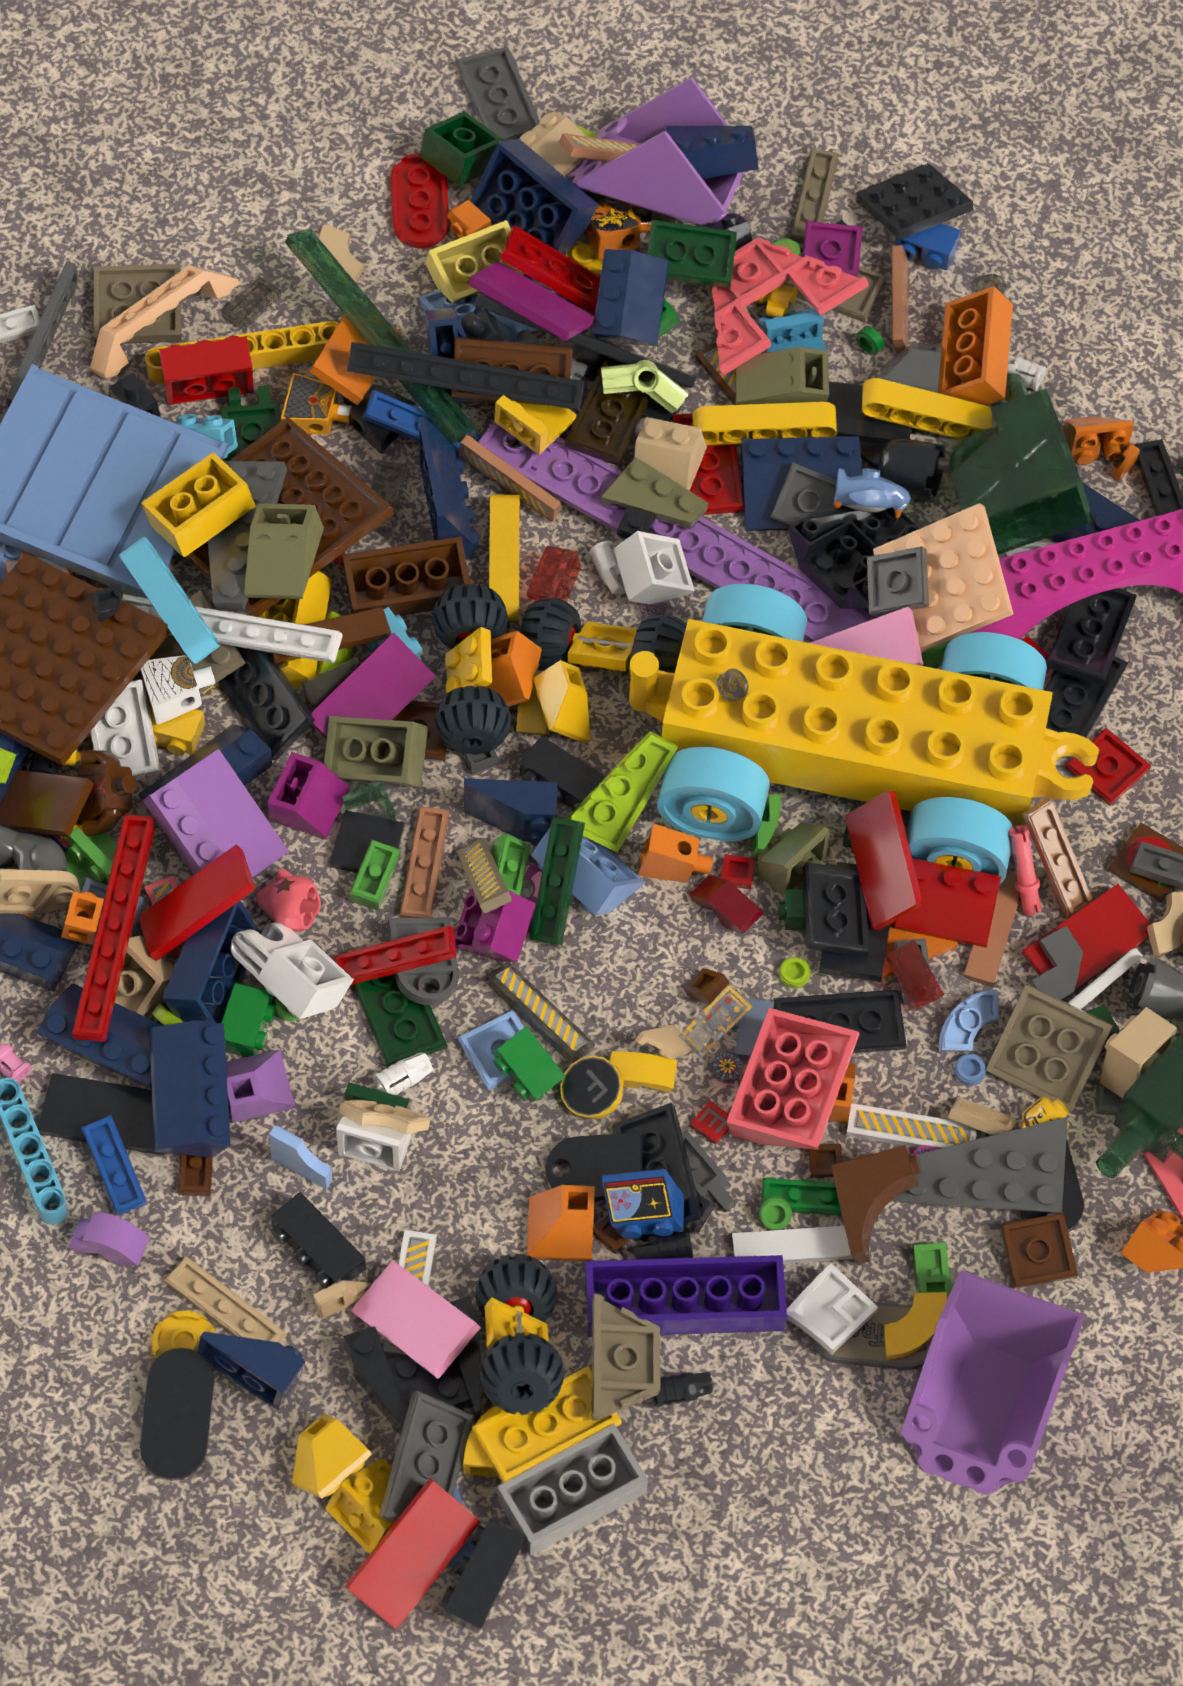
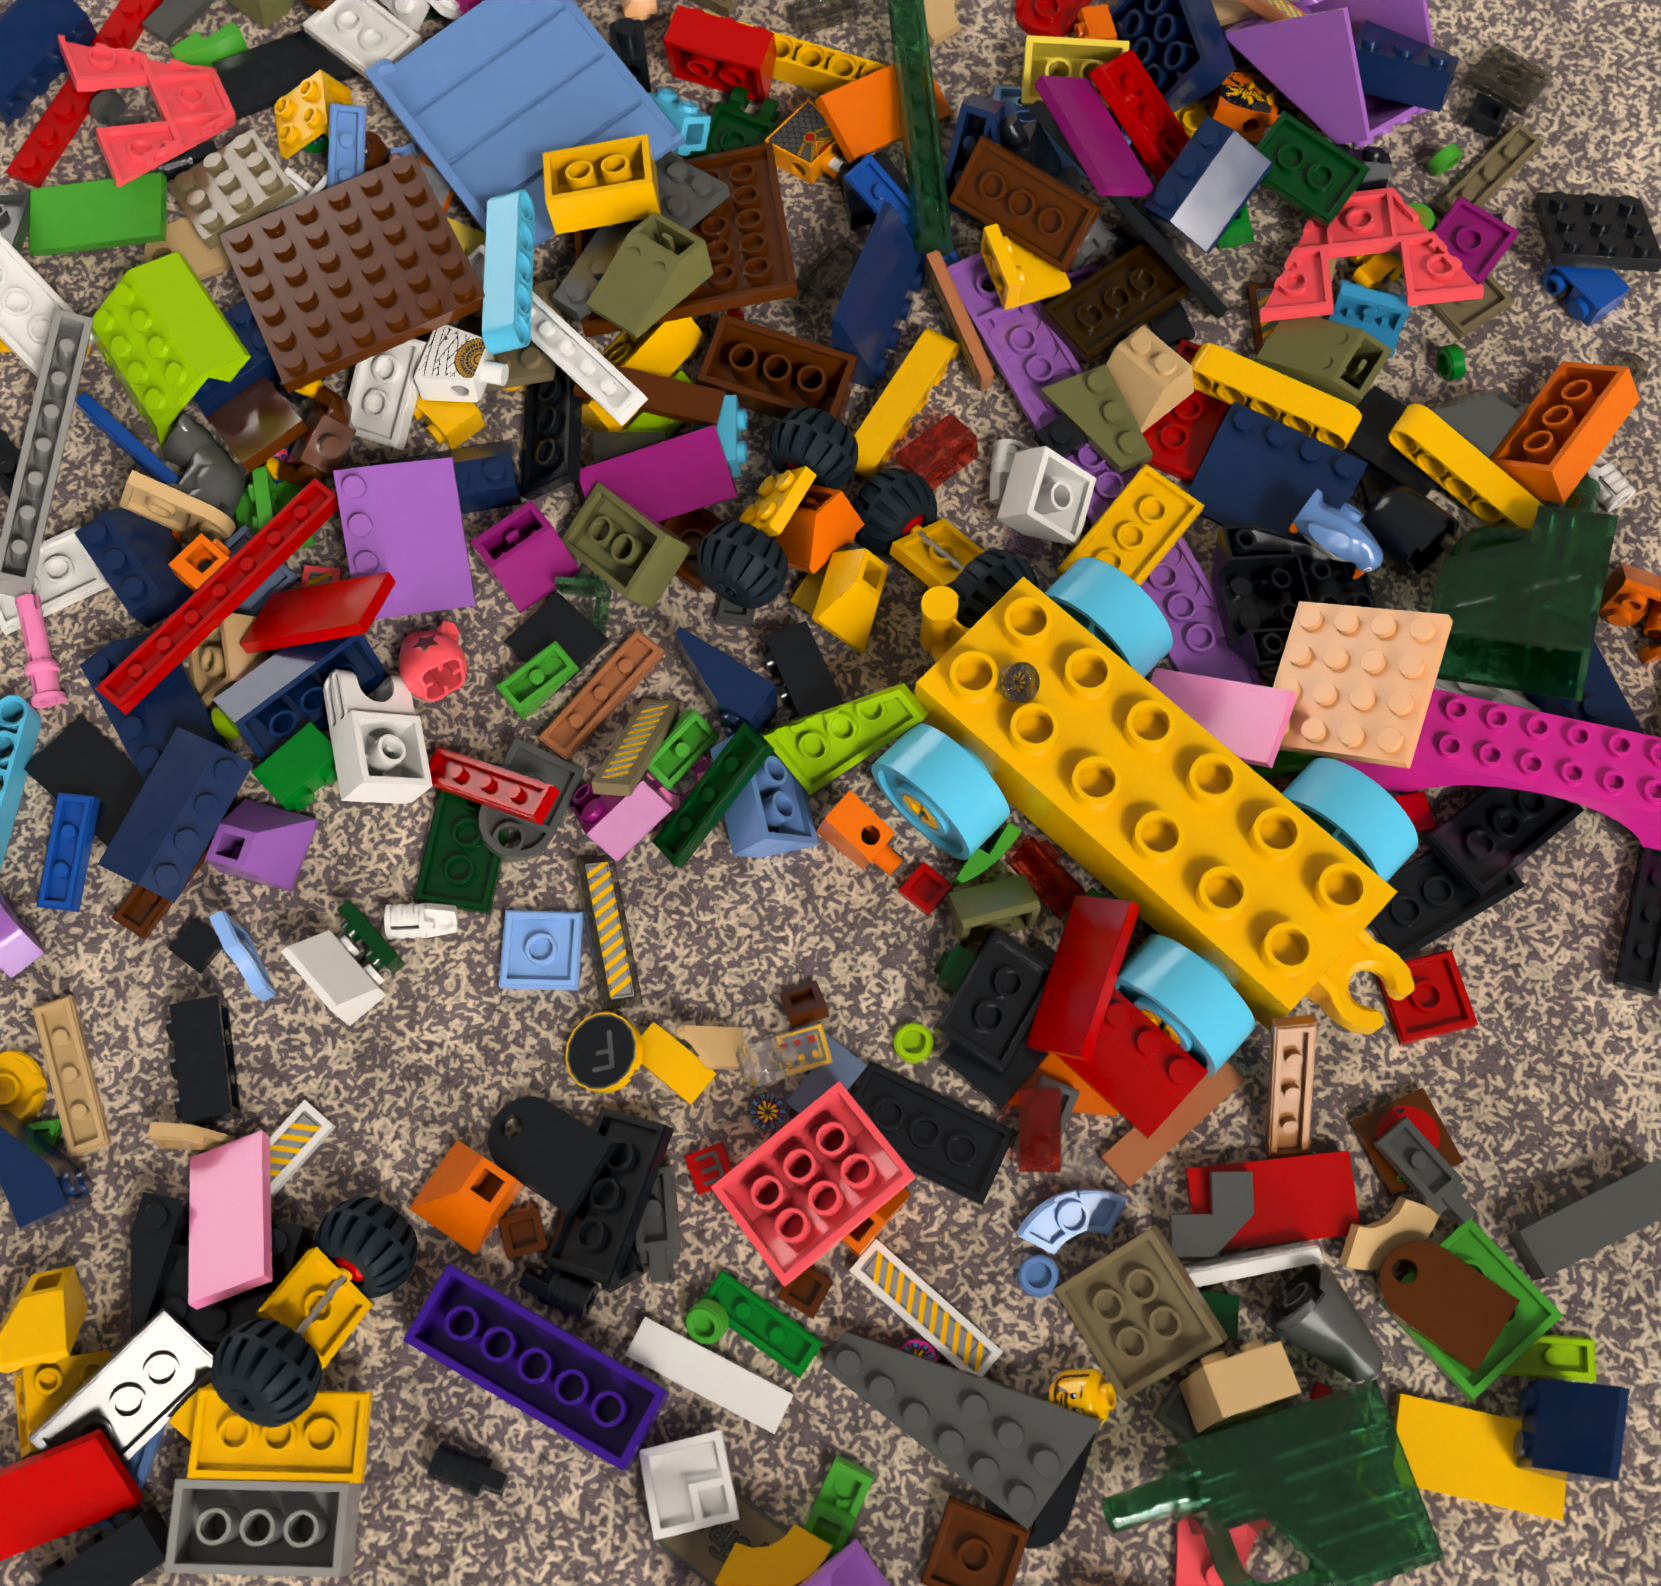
camera: 35 degrees right, 10 degrees up
(107, 601) = (440, 241): black tile -> none
(253, 1177) = (196, 946): none -> black tile
(376, 1114) = (340, 952): tan tile -> none
(465, 376) = (972, 184): black tile -> none
(527, 1065) = (547, 988): green brick -> none
(622, 1359) = (405, 1412): dark tan wing -> none
(644, 1203) = (552, 1237): slope -> none
(660, 387) = (1148, 272): yellowish green piece -> none
(727, 555) = (1138, 526): none -> yellow tile
(728, 902) = (887, 921): dark red slope -> none
(778, 199) = (1444, 159): none -> bright green tile
(787, 119) = (1508, 79): none -> clear smoke tile
(787, 153) = (1486, 115): none -> black plate
(803, 494) = (1265, 499): dark grey tile -> none
(809, 812) = (1046, 876): none -> clear red hinge
(867, 1187) = (810, 1365): reddish brown arch -> none
(897, 581) = (1301, 655): dark grey tile -> none
(899, 299) = (1513, 332): nougat tile -> none
(981, 1117) = (1012, 1348): tan tile -> none
(1026, 880) = (1239, 1090): coral pin -> none

